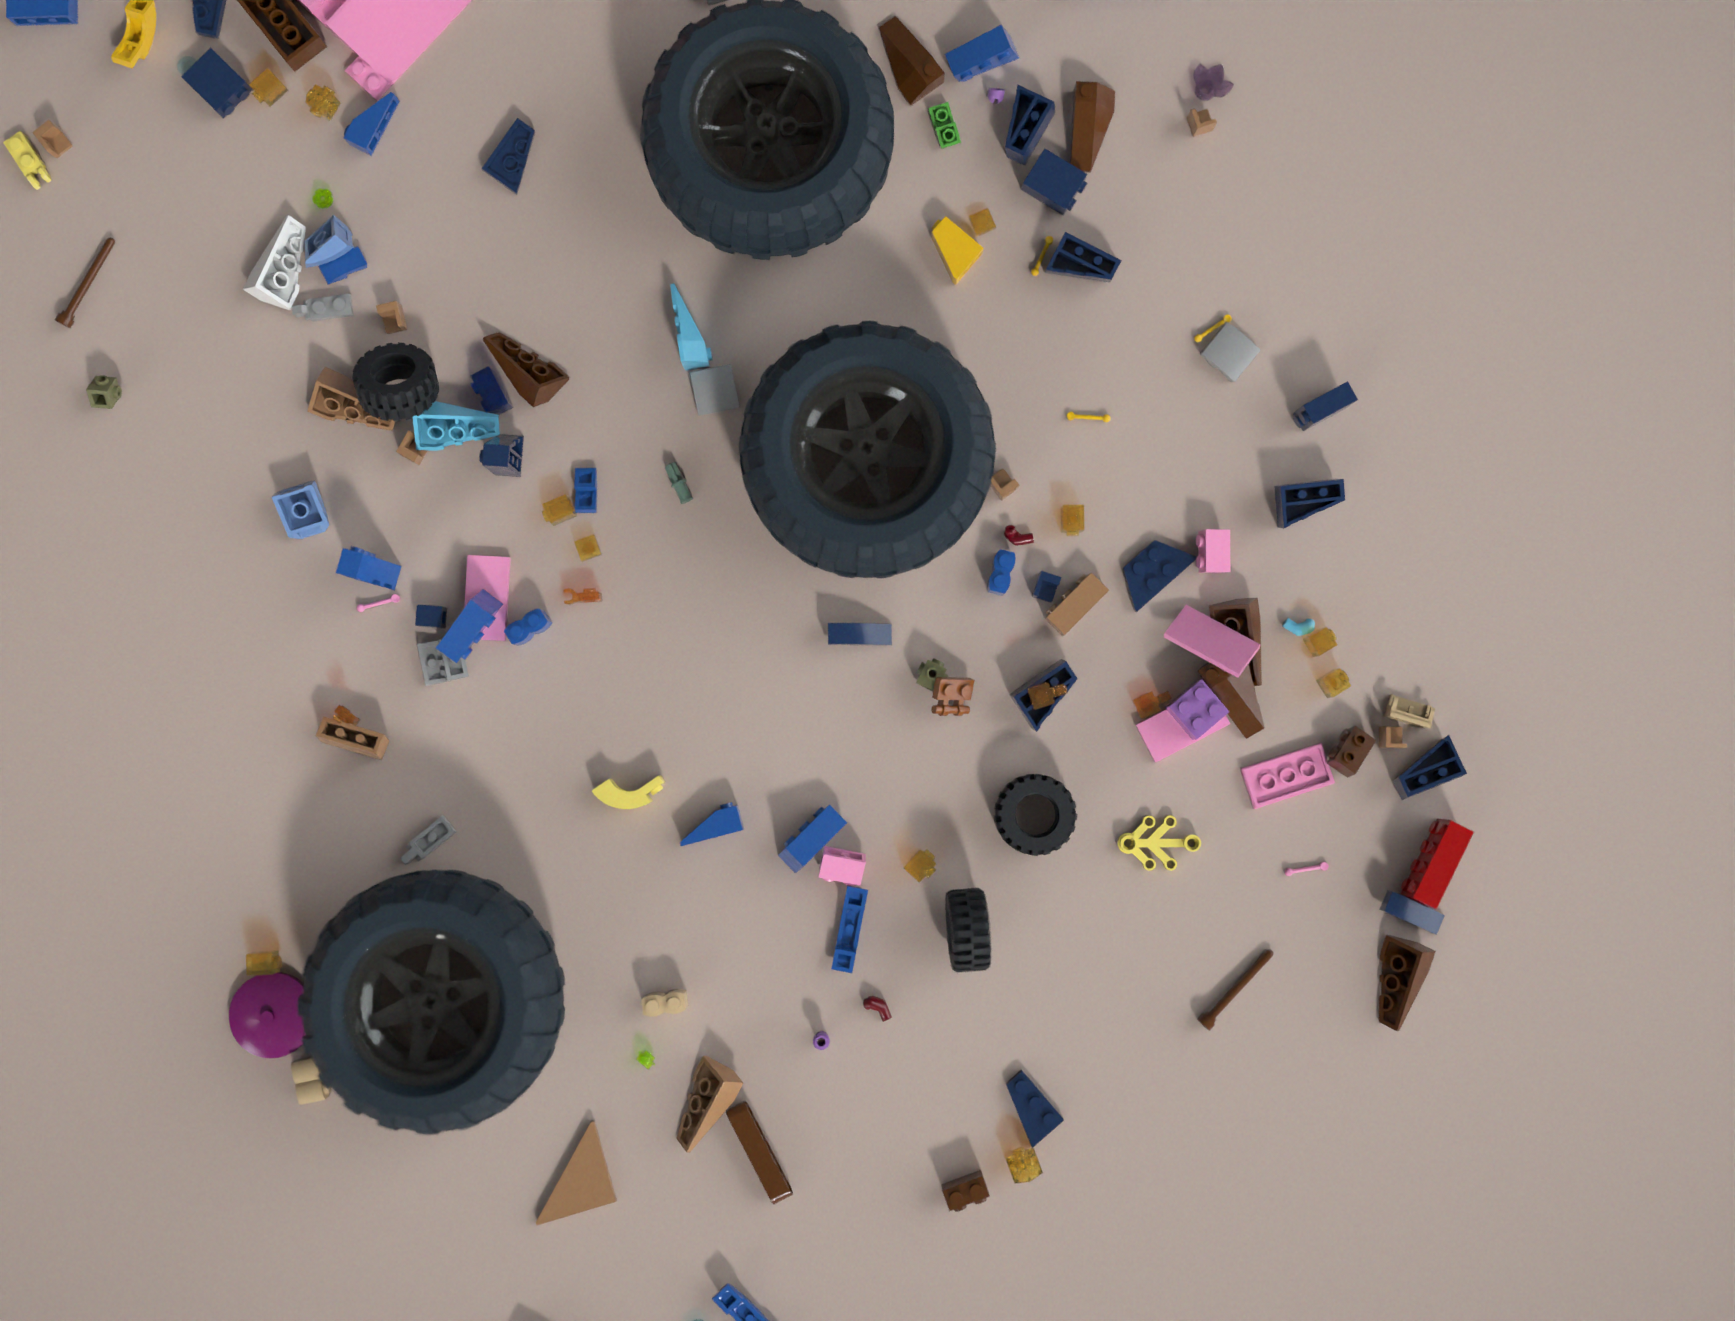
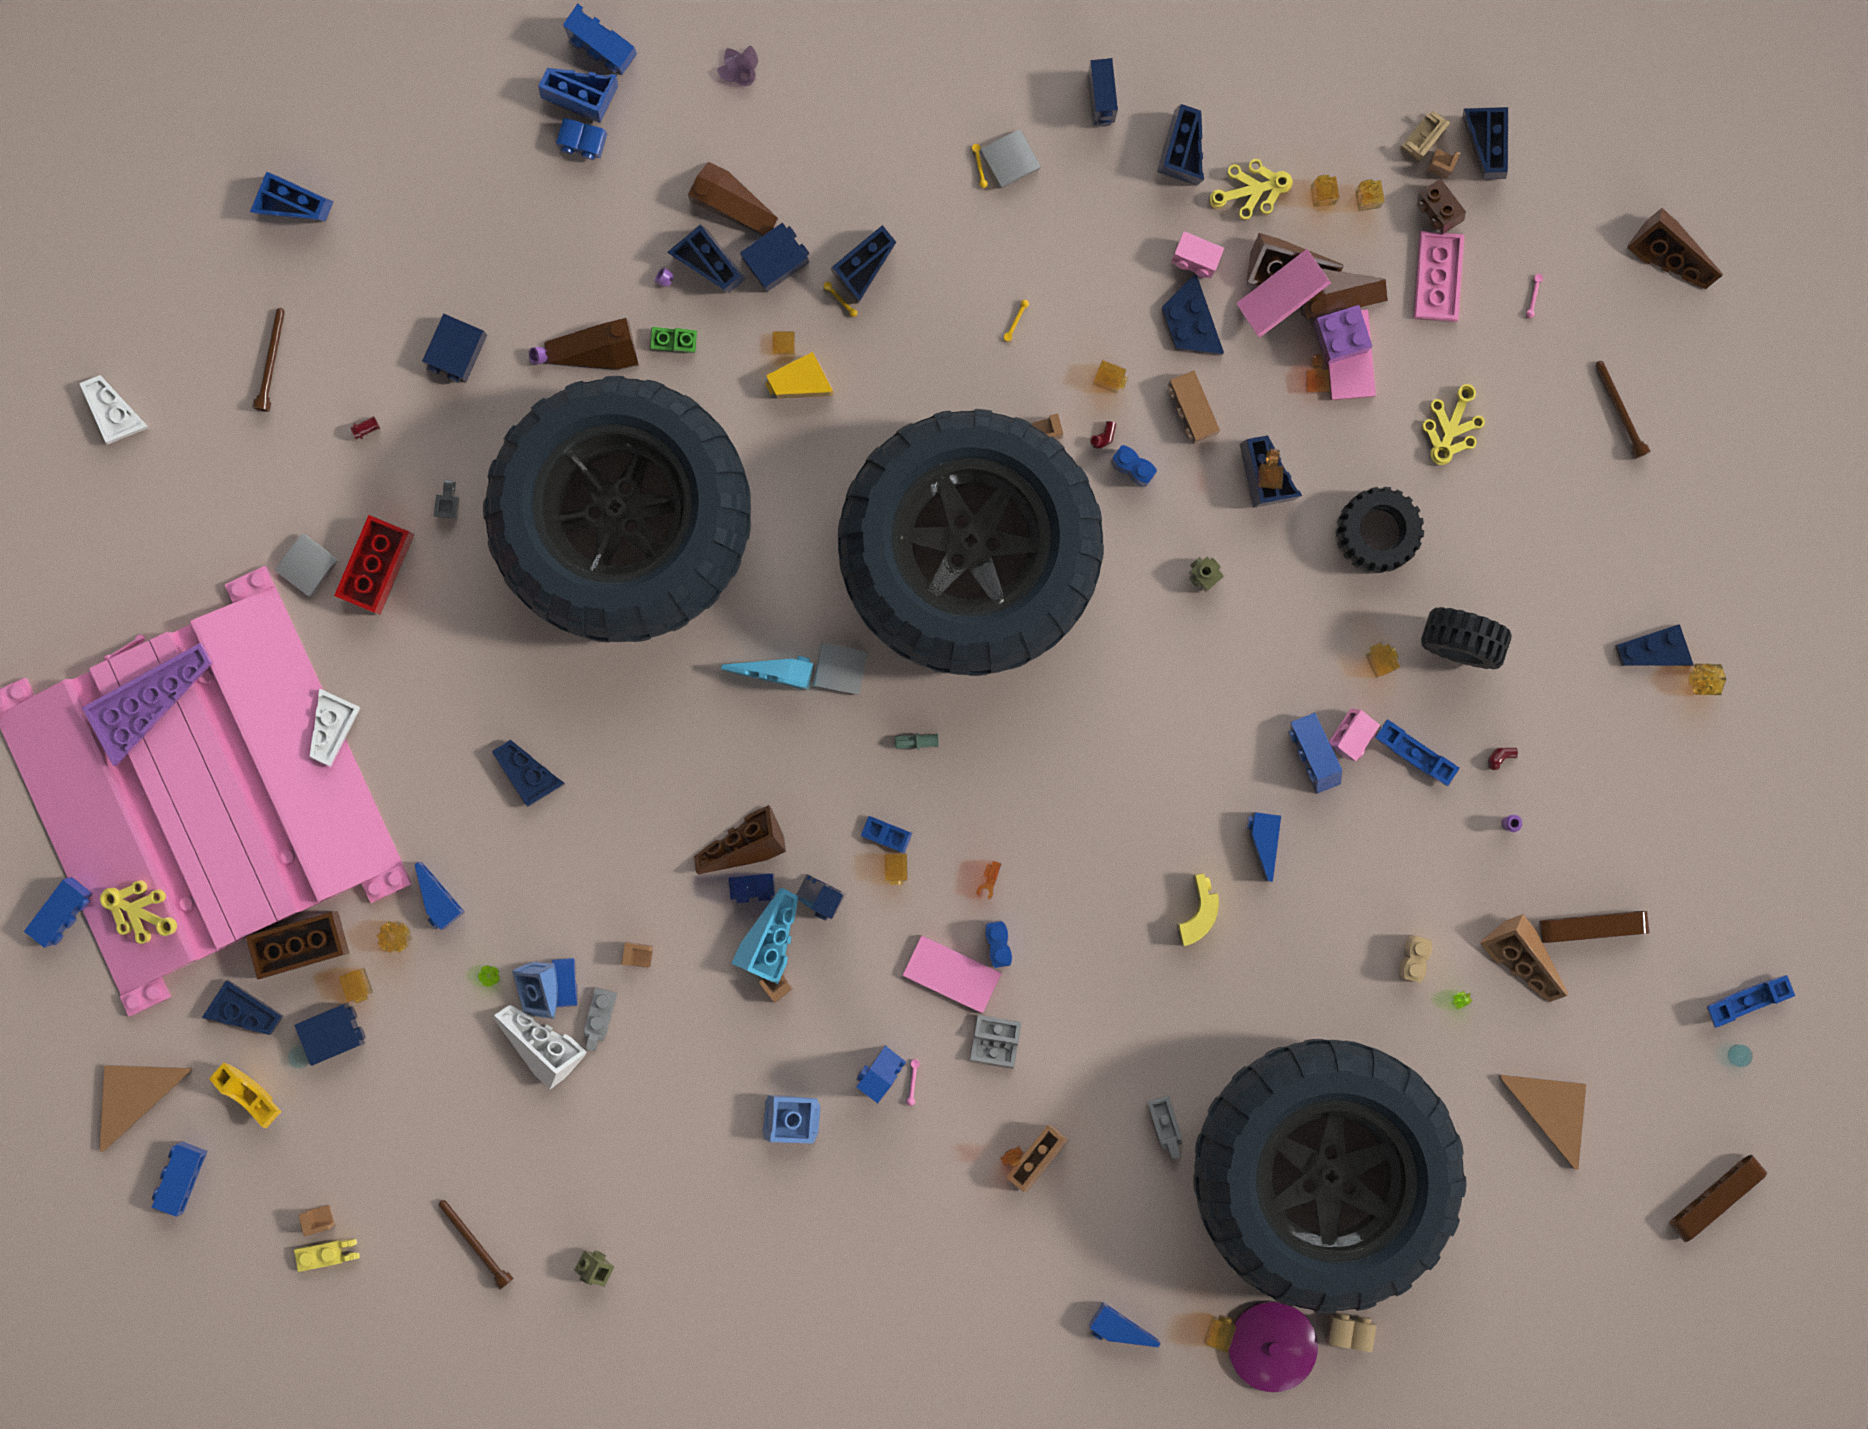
camera: 70 degrees left, 0 degrees up
(233, 870) = (1117, 1328): none -> blue slope
(337, 399) = (699, 1033): medium nougat wedge -> none
(390, 364) = (686, 969): black tyre -> none
(431, 616) = (949, 1034): dark blue panel -> none
(469, 626) = (977, 999): blue wedge -> none
(588, 548) = (944, 855): clear yellow plate -> none
(859, 634) = (1137, 626): dark blue slope -> none
(880, 14) = (537, 355): none -> medium lavender hinge
(952, 689) = (1228, 558): dark orange plate -> none
(965, 1191) = (1709, 745): reddish brown brick -> none
(982, 54) = (621, 274): blue wedge -> none
(1046, 586) = (1164, 429): dark blue panel -> none
(1200, 122) = (774, 92): medium nougat panel -> none
(1295, 579) = (1253, 188): none -> light yellow plant
(1301, 628) = (1304, 205): medium azure arm -> none
(1412, 912) = (1615, 214): dark blue slope -> none
(1436, 862) = (1579, 171): red brick -> none

